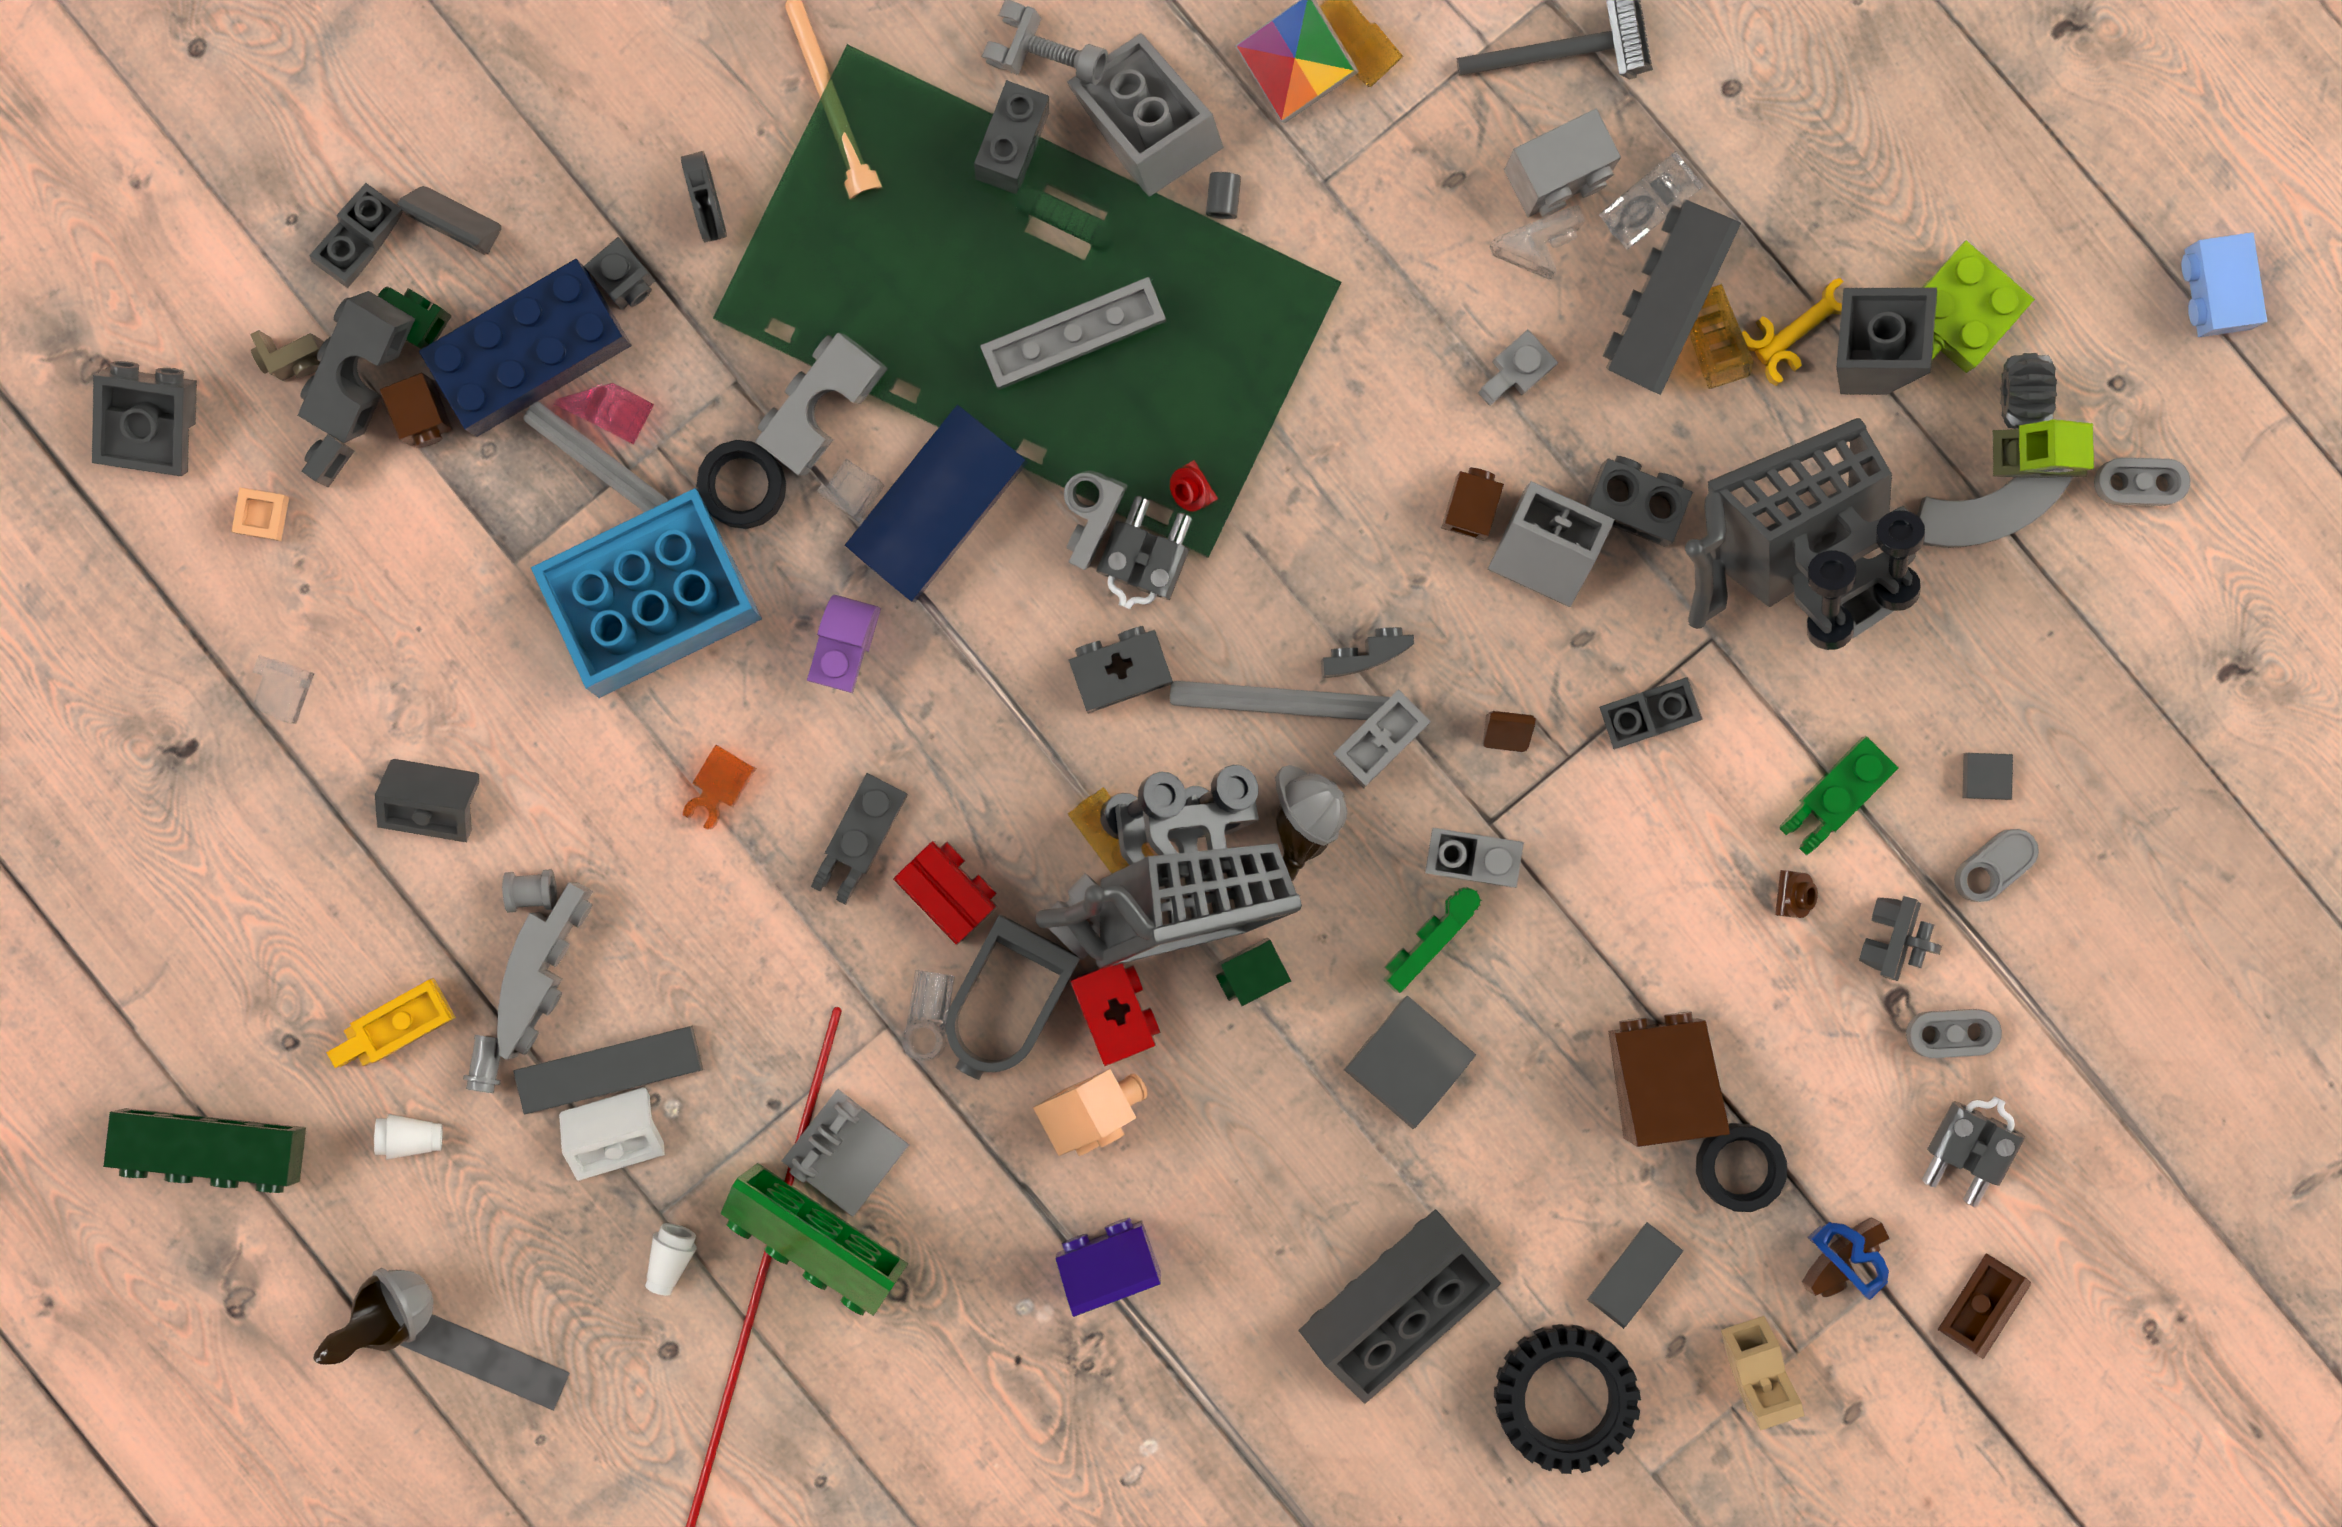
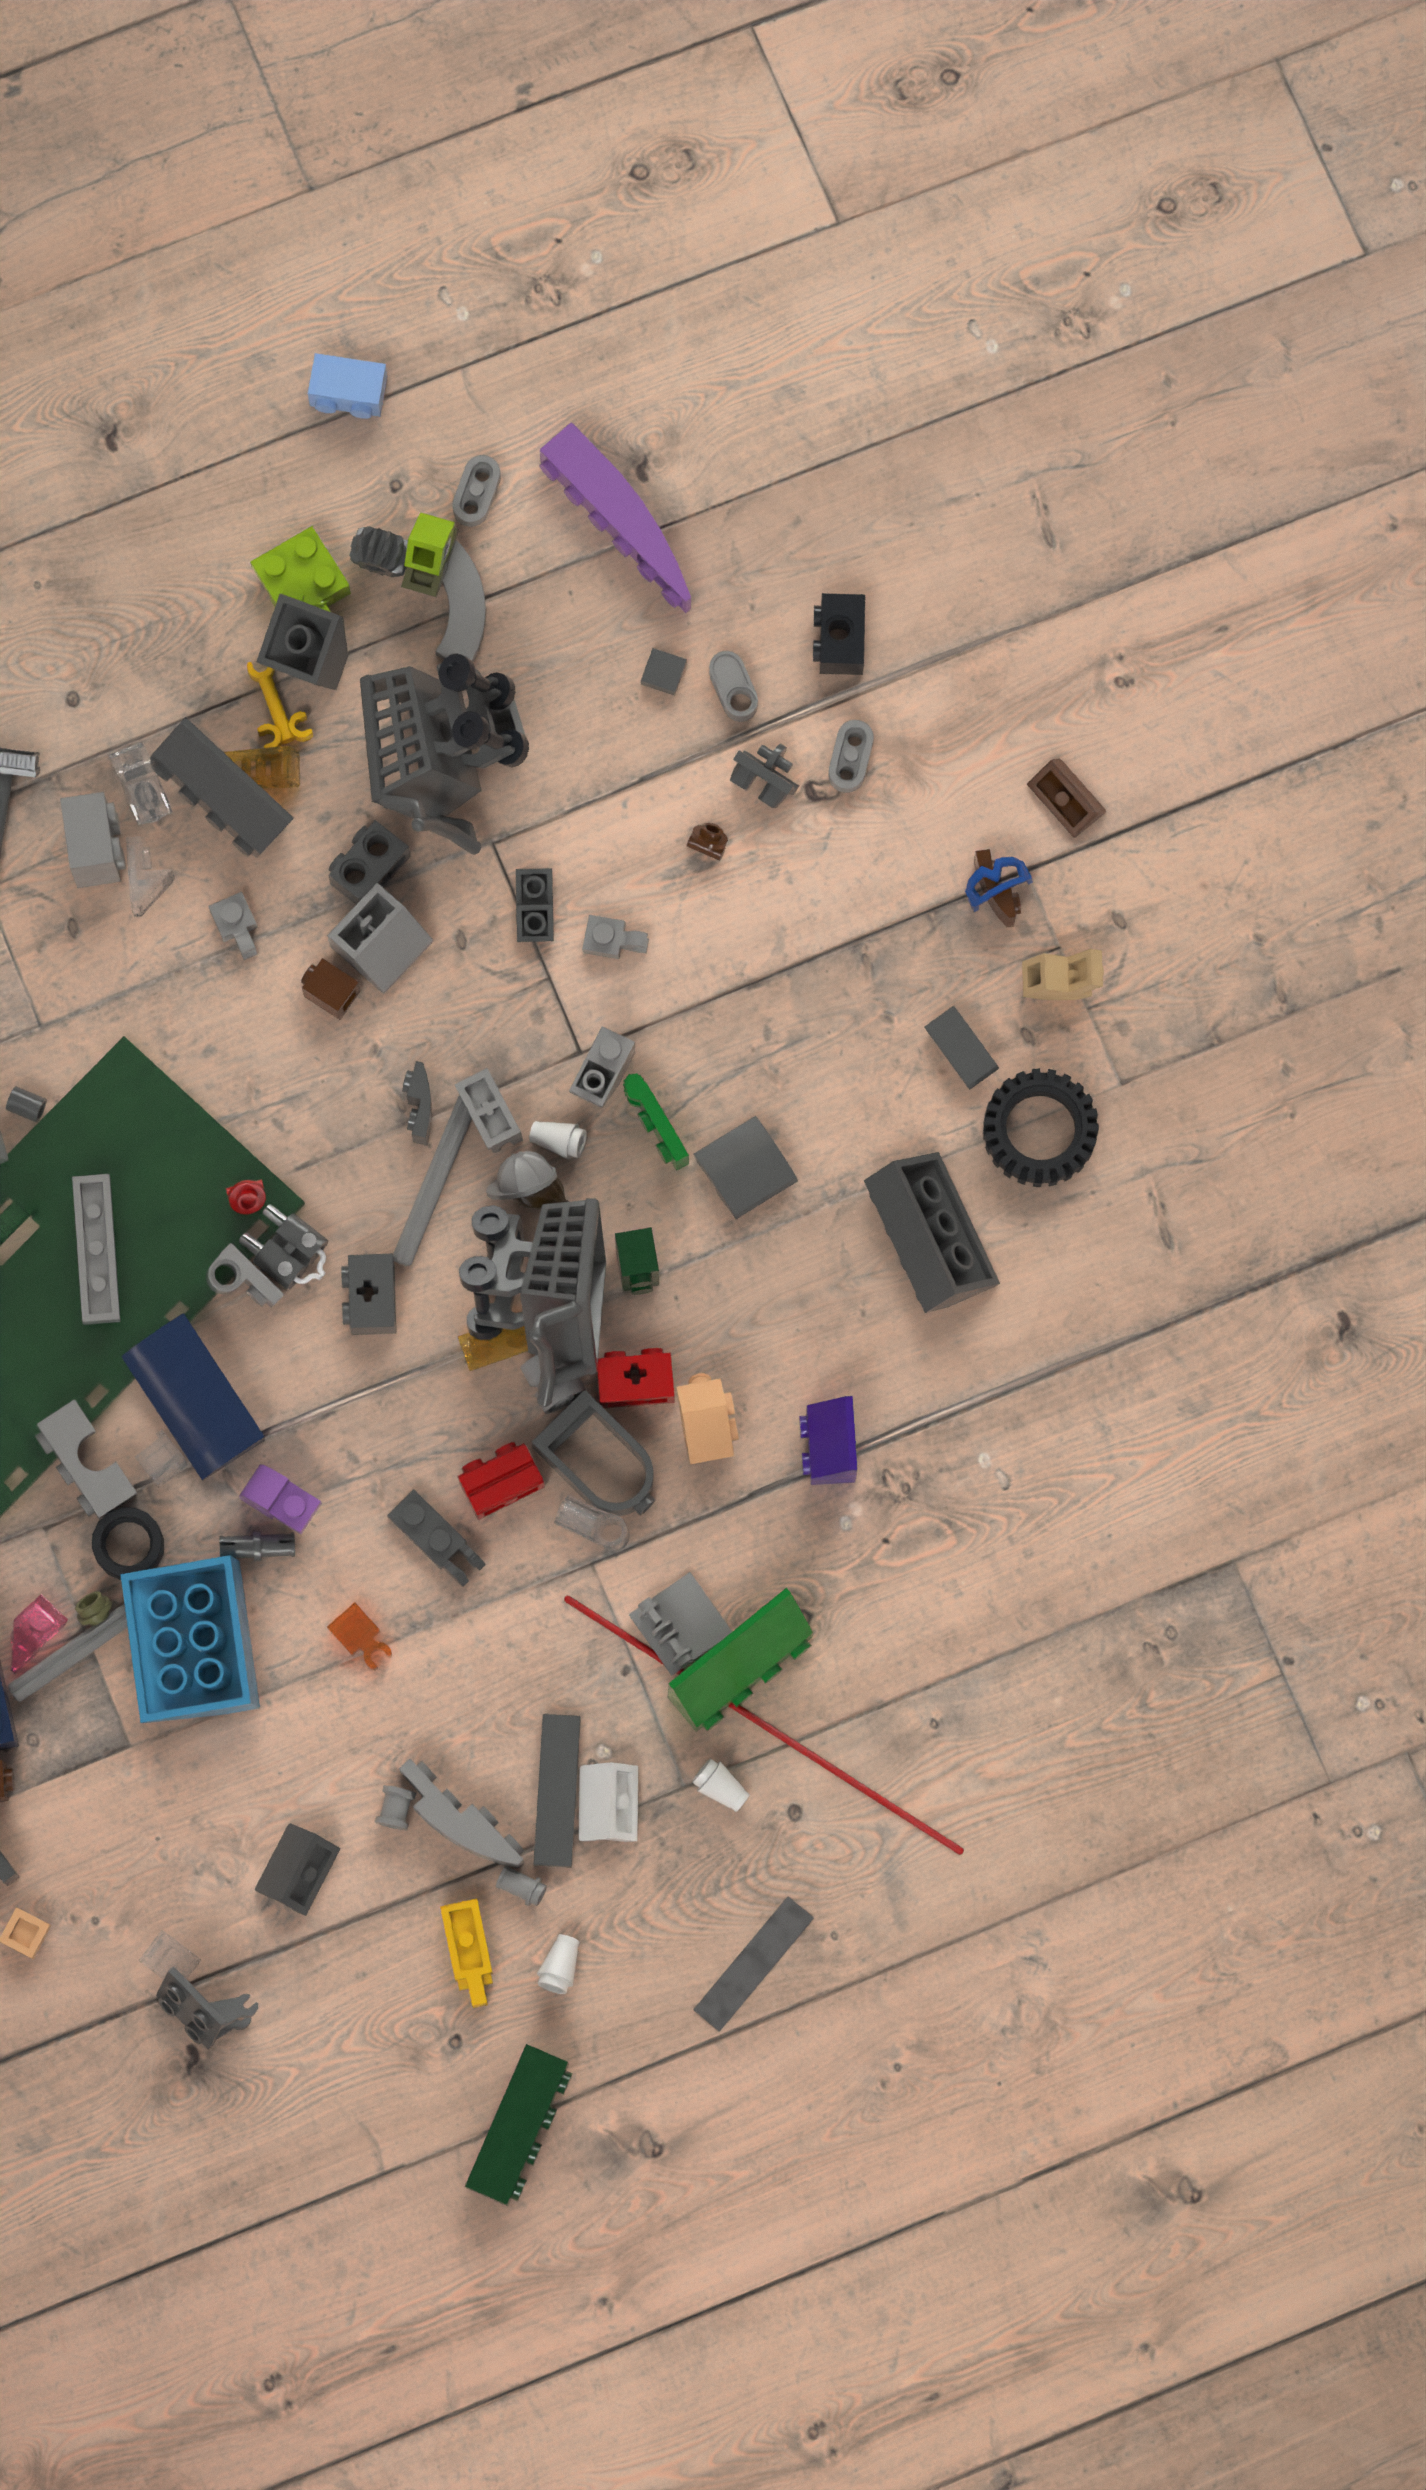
camera: 75 degrees left, 10 degrees down
(216, 760) = (202, 2020): none -> dark grey plate
(384, 1314) = (694, 2022): dark brown piece -> none
(653, 469) = (93, 1608): none -> olive plate
(784, 633) = (258, 1545): none -> dark grey pin
(1376, 831) = (560, 1138): none -> white cone
(1508, 731) = (513, 1015): reddish brown slope -> none
(1639, 810) = (608, 936): none -> light grey plate
(1667, 1081) = (818, 977): reddish brown slope -> none
(1766, 1192) = (904, 916): black tyre -> none
(1841, 792) = (640, 782): green hinge -> none
(1975, 1144) = (940, 766): dark grey piece -> none
(2130, 975) = (846, 613): none -> black brick
(2173, 654) = (615, 508): none -> medium lavender slope

